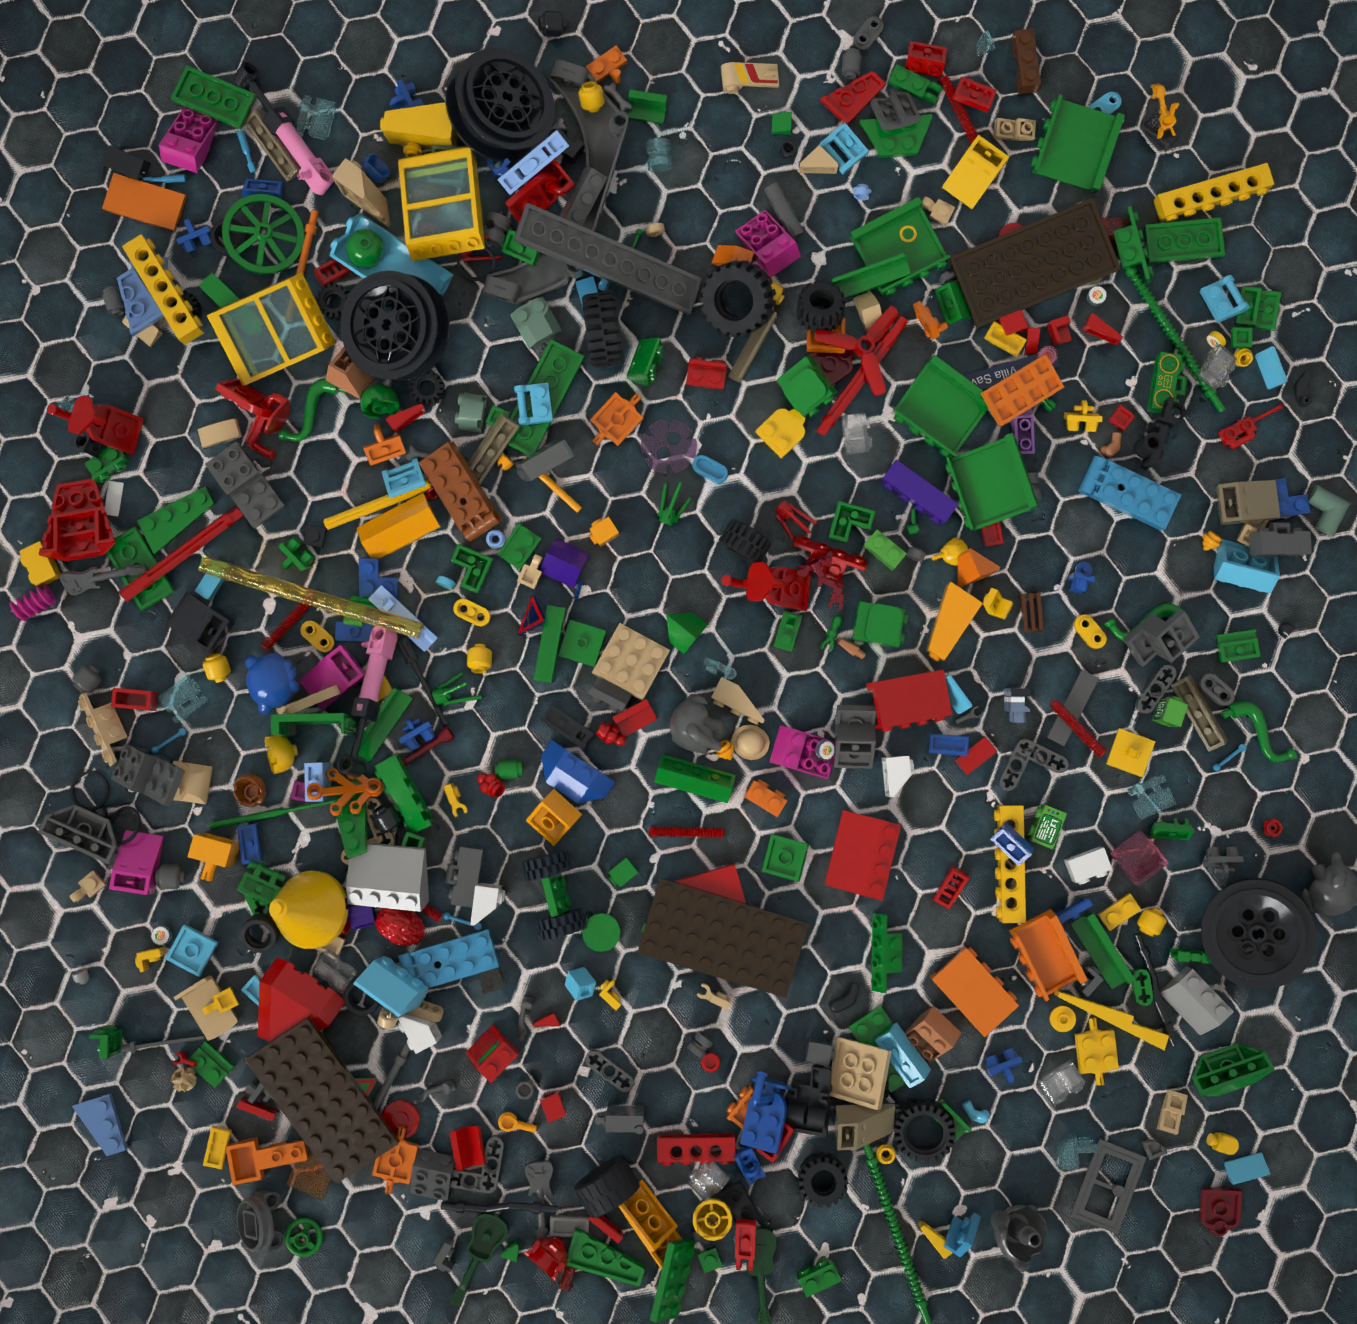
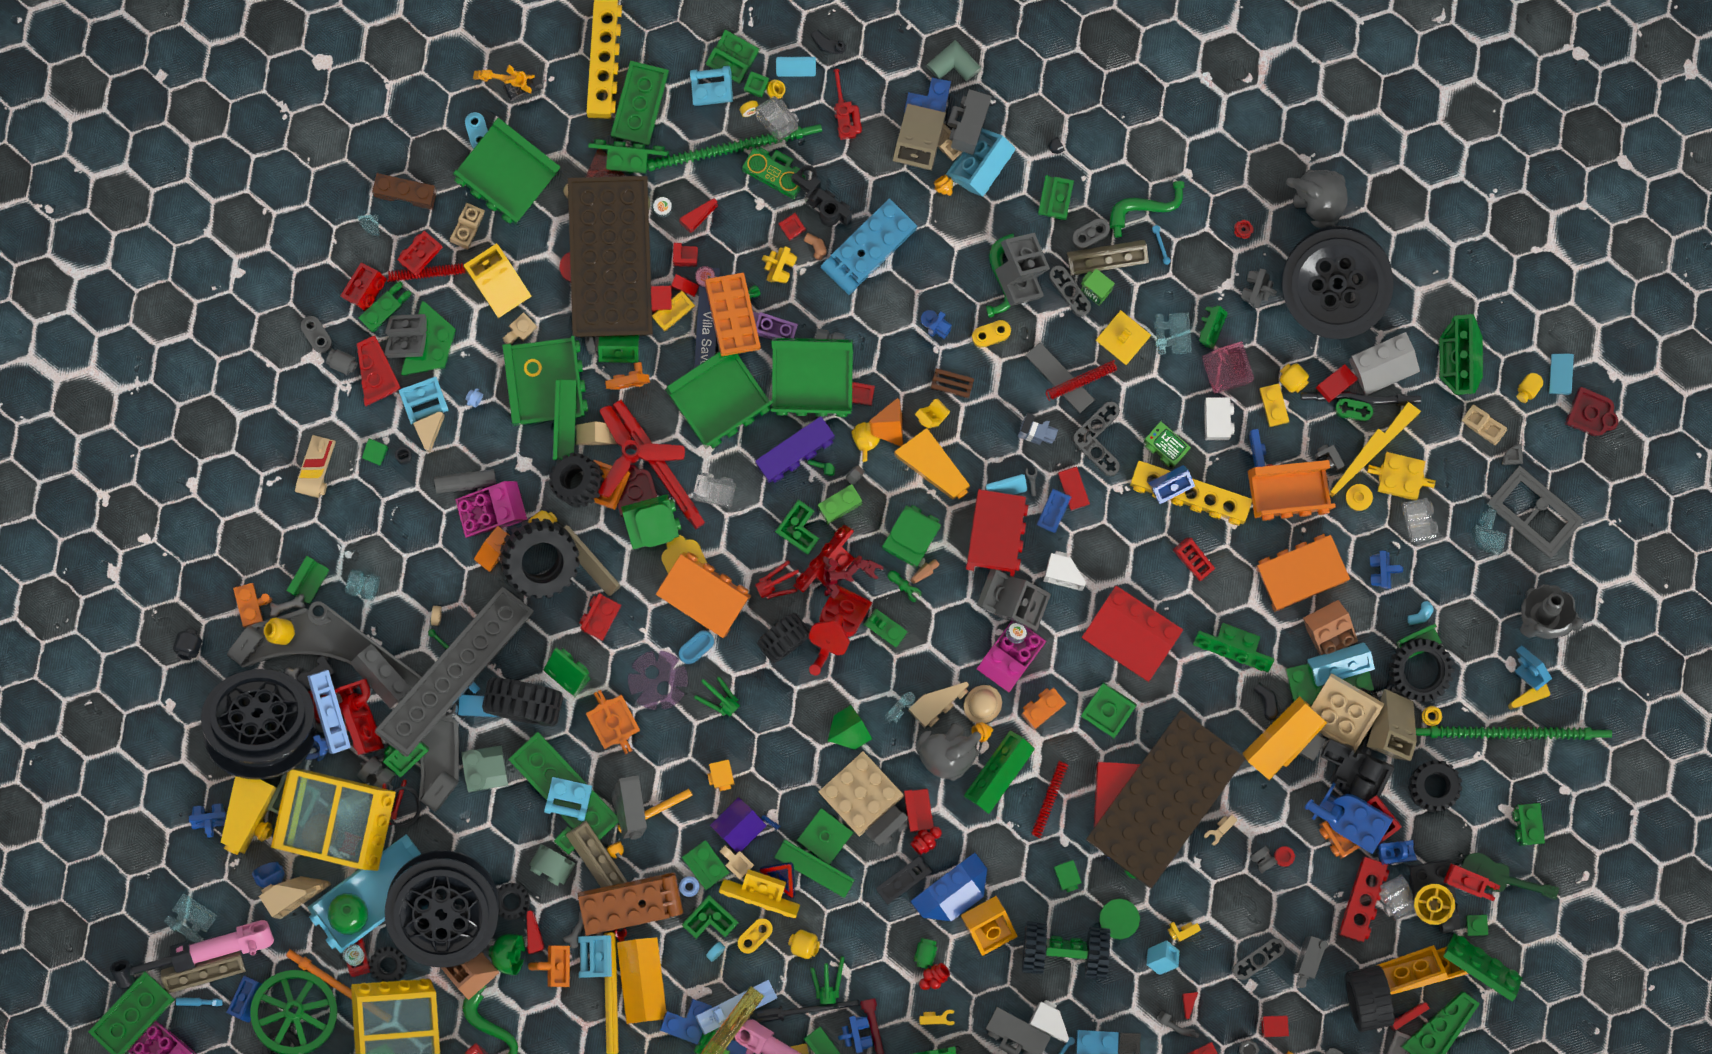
camera: 80 degrees left, 5 degrees down
(331, 267) = (353, 955): none -> clear light blue tile
(511, 604) = (762, 892): none -> yellow bracket
(759, 457) = (703, 594): none -> orange panel
(816, 1027) = (1284, 738): none -> light orange slope
(1102, 950) = (1305, 435): green panel -> none
(1161, 963) = (1336, 383): none -> red tile
(1185, 956) = (1337, 358): green piece -> none

